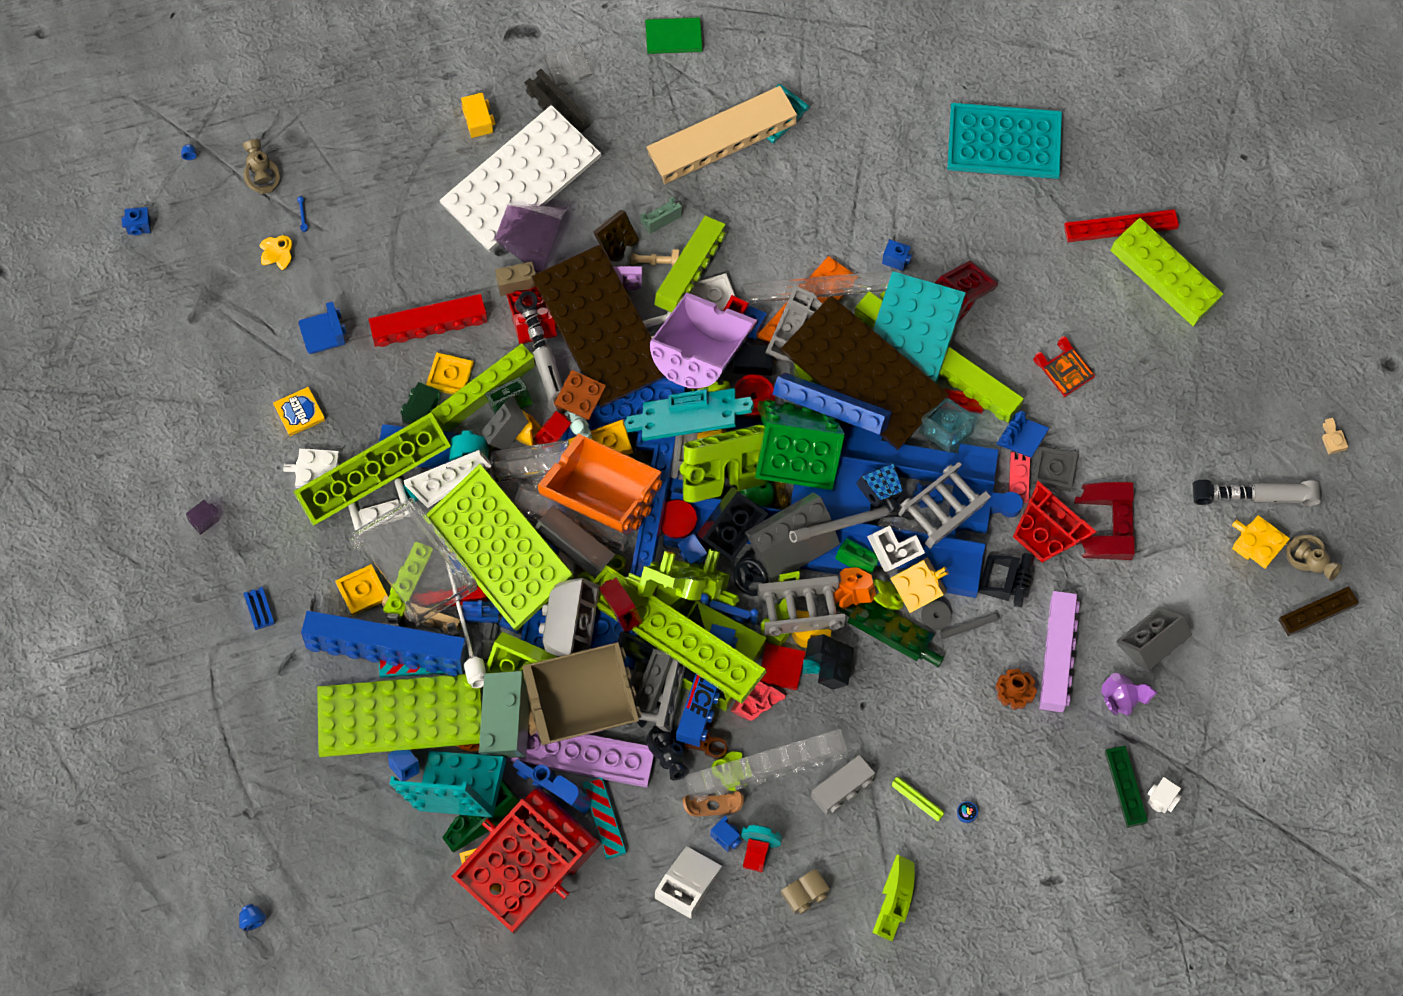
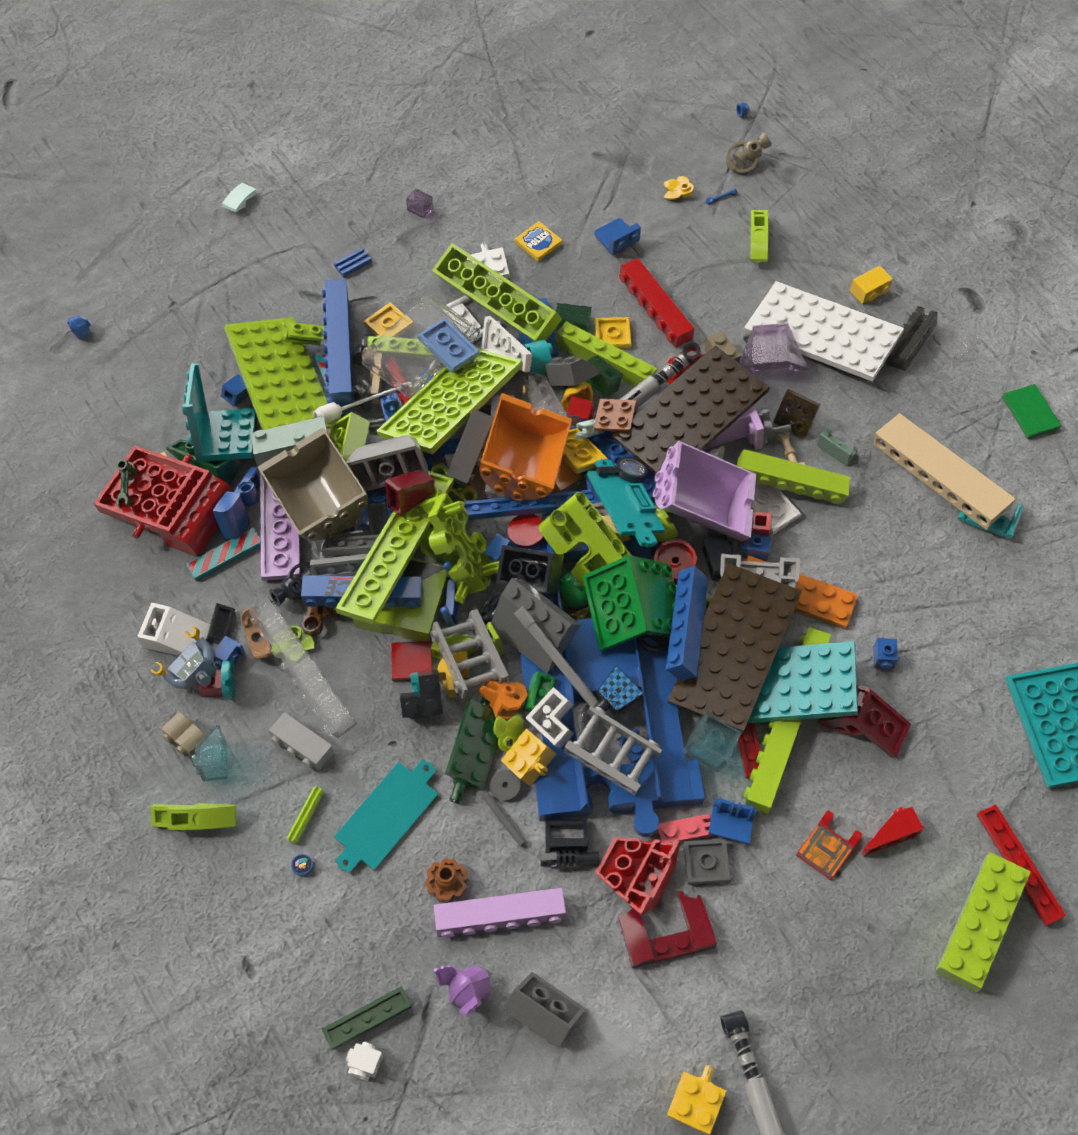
camera: 75 degrees right, 5 degrees down
(117, 709) = (237, 198): none -> light aqua slope
(136, 221) = (665, 94): blue brick -> none
(359, 673) = (304, 333): none -> lime bracket
(377, 193) = (759, 236): none -> lime slope
(430, 530) = (448, 345): none -> medium blue tile
(503, 889) = (128, 471): none -> dark green brick
(646, 402) = (627, 468): none -> black piece
(688, 836) = (220, 623): none -> black tile
(736, 866) = (192, 666): none -> sand blue torso
(758, 701) = (371, 647): coral slope -> none
(819, 286) = (816, 588): clear plate -> none
(840, 865) = (211, 756): none -> clear light blue slope
(937, 727) = (385, 816): none -> teal piece
(1065, 308) = (899, 828): none -> red slope

